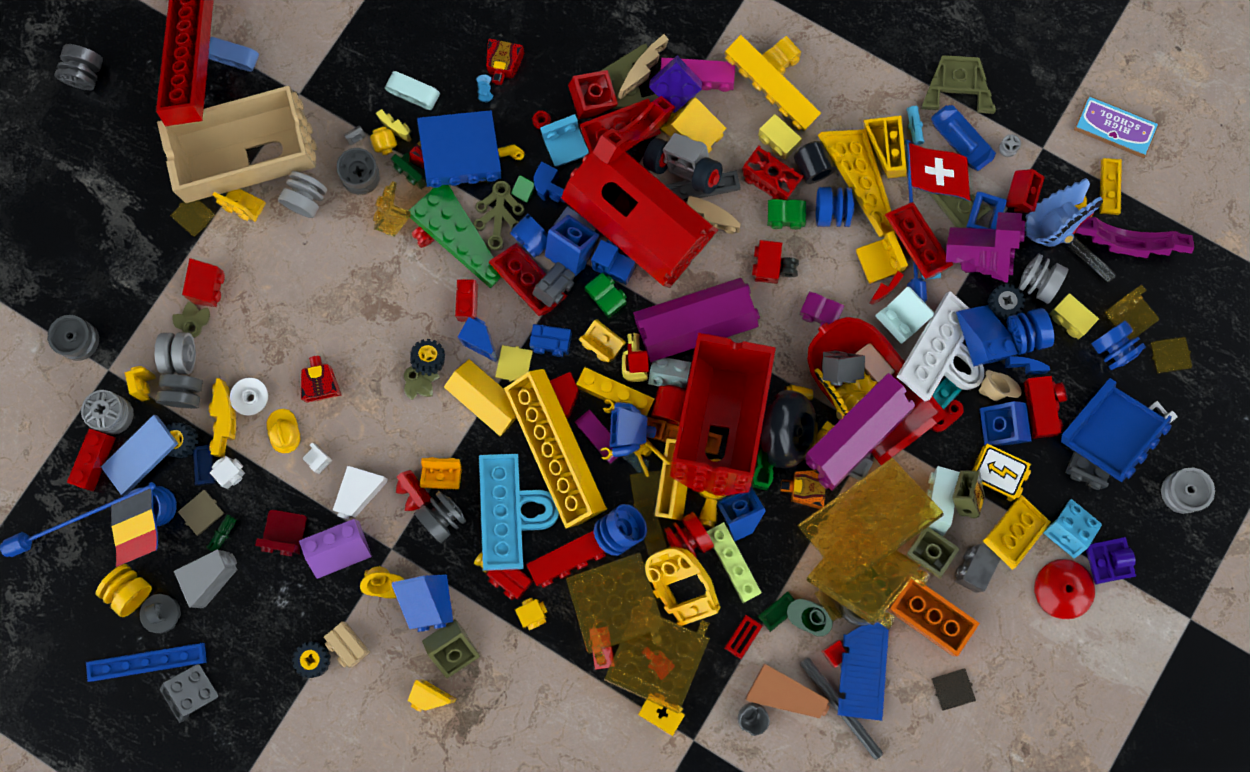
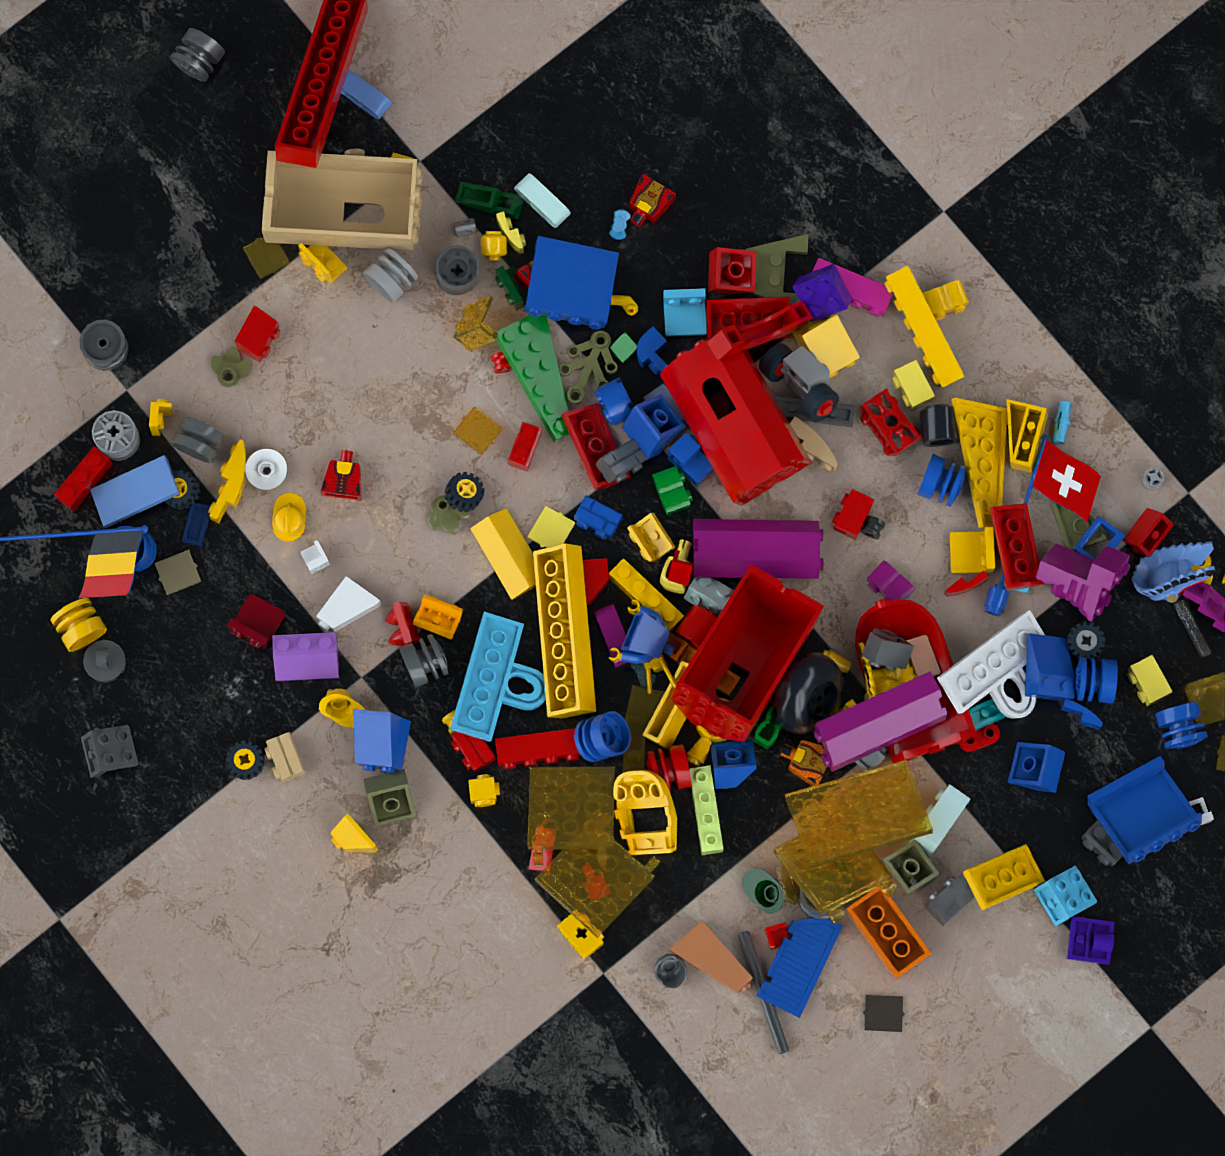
camera: 10 degrees right, 0 degrees up
(146, 662) = (75, 705): blue tile -> none
(175, 353) = (205, 398): light grey wheel -> none
(205, 577) = (166, 639): light grey slope -> none
(222, 533) = (193, 601): dark green axle -> none
(227, 471) = (219, 539): white brick -> none
(367, 104) = (489, 199): none -> dark green slope
(422, 301) = (477, 430): none -> clear yellow piece
(477, 338) = (523, 490): blue slope -> none
(541, 115) = (668, 273): red plate -> none
(641, 69) = (791, 264): tan slope -> none
(734, 651) = (676, 899): red tile -> none
(777, 612) = (731, 876): dark green tile -> none
(786, 213) = (891, 470): green brick -> none
(905, 315) = (973, 619): light aqua bracket -> none
(962, 76) = (1127, 385): olive wing -> none
(963, 137) = (1108, 452): blue piece -> none
(969, 500) = (969, 823): olive torso -> none
(999, 386) = (1044, 724): tan piece -> none
(1002, 471) = (1012, 813): panel -> none
(1042, 407) = (1081, 762): red brick -> none
(1043, 278) = (1130, 630): light grey wheel -> none
(1052, 593) = (1023, 964): red dish -> none
(1061, 392) = (1105, 753): red tile -> none
(1188, 490) = (1207, 893): light grey wheel -> none

